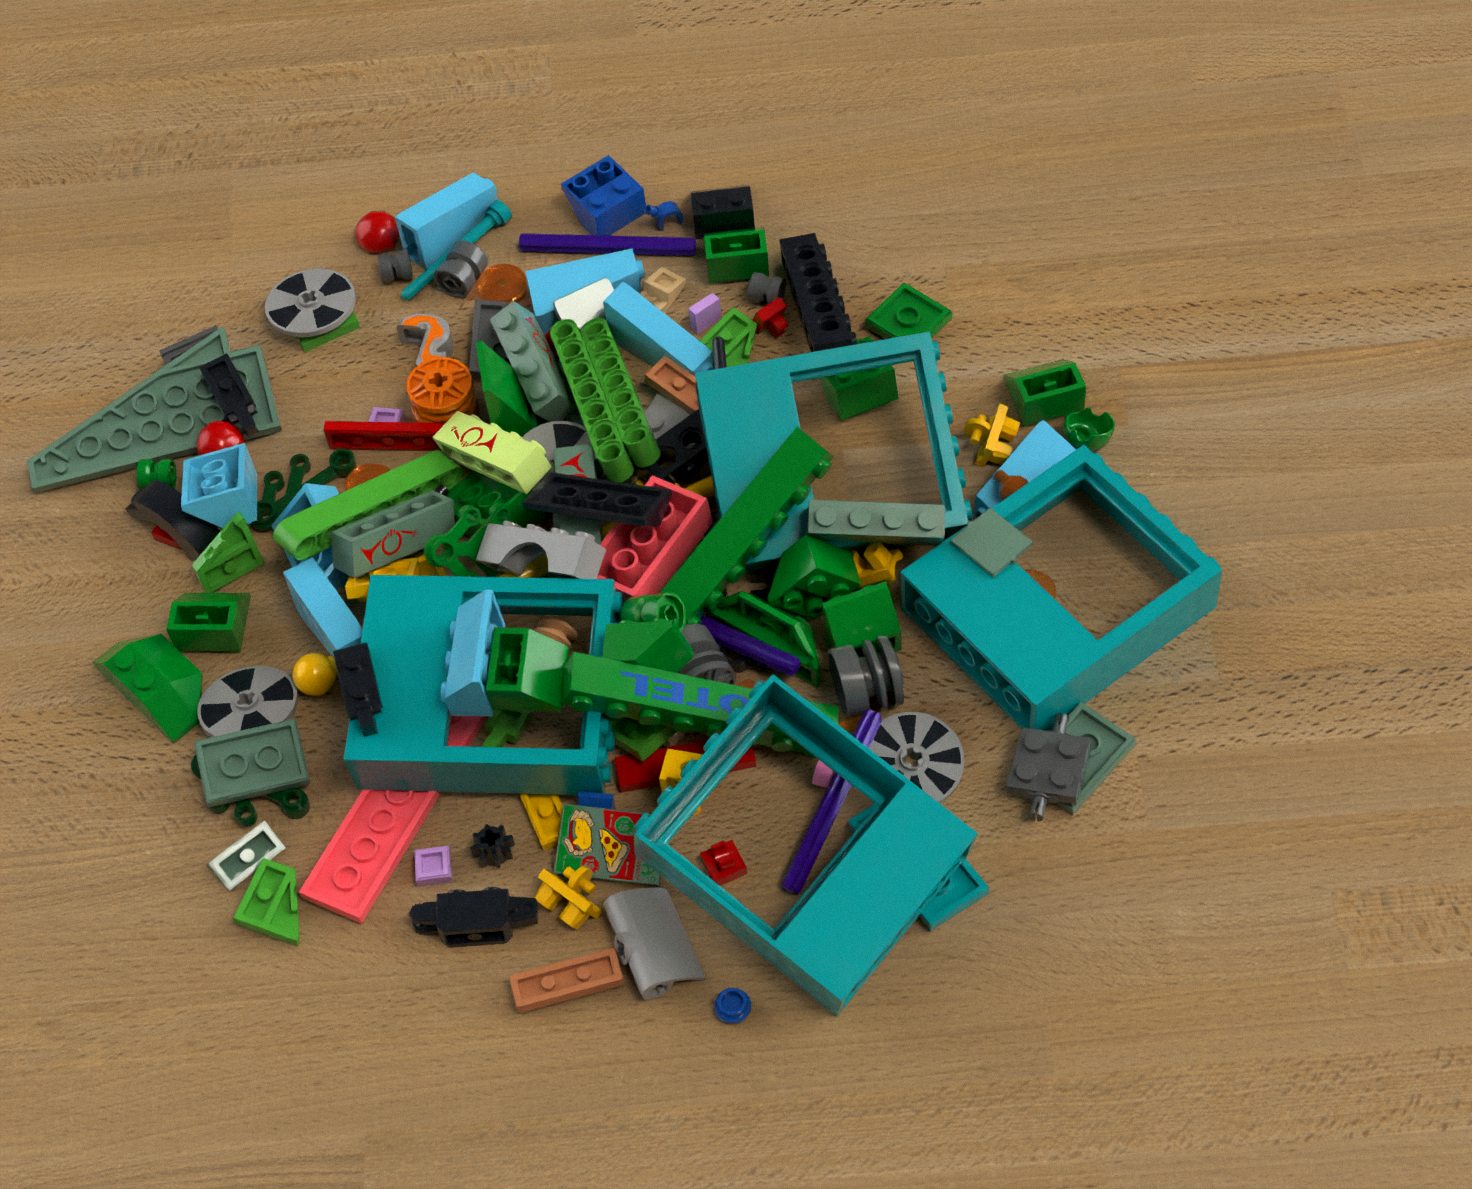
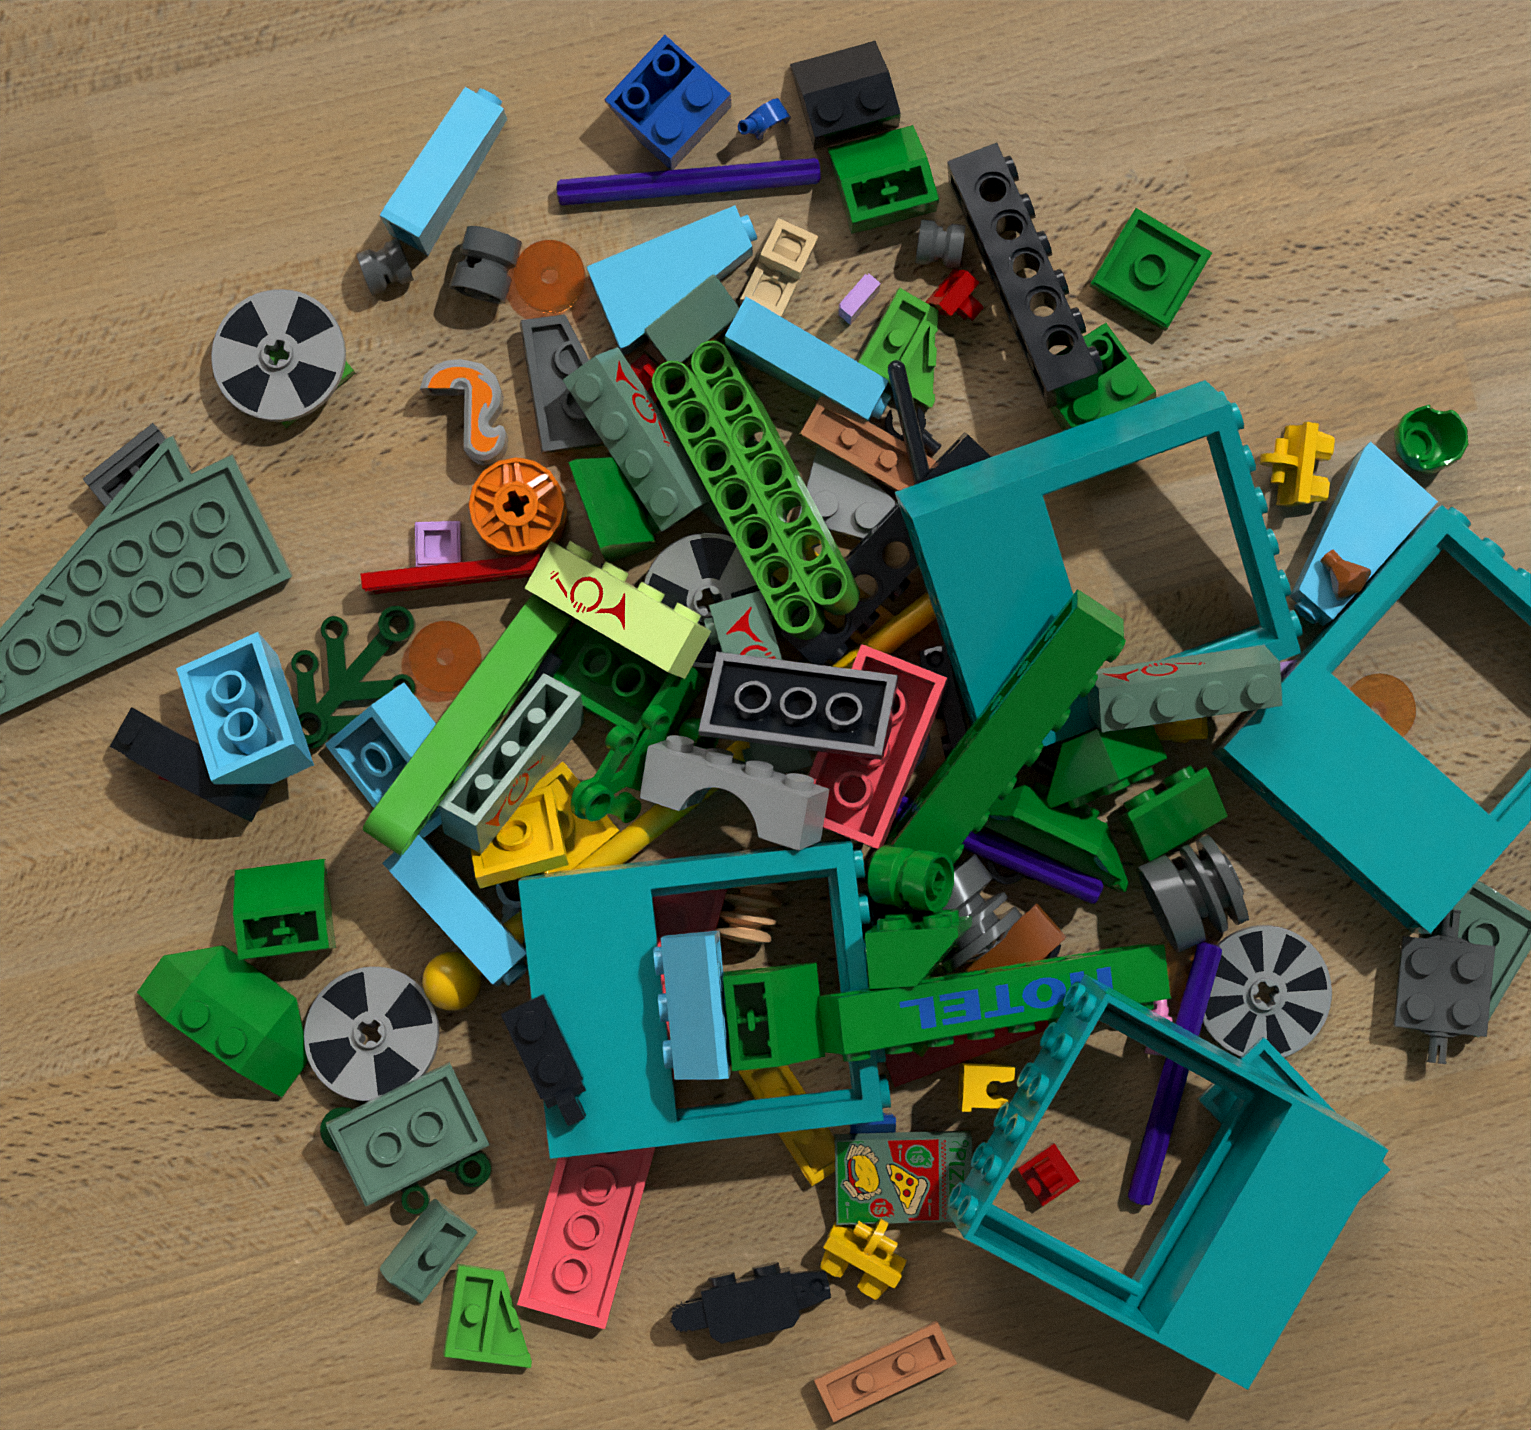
camera: 15 degrees left, 30 degrees up
(162, 471) = (137, 683): green wheel -> none
(218, 436) = (215, 622): red hair -> none
(228, 556) = (281, 814): bright green wing -> none
(230, 392) = (212, 547): black hinge -> none
(377, 232) = (341, 202): red hair -> none
(433, 865) = (676, 1231): lavender tile -> none
(493, 837) = (737, 1196): black gear -> none
(496, 215) = (511, 150): teal piece -> none
(651, 940) = (983, 1306): light grey panel -> none
(732, 1005) = (1096, 1371): blue plate -> none
(991, 542) = (1339, 688): sand green piece -> none
(1046, 391) = (1361, 373): green slope -> none

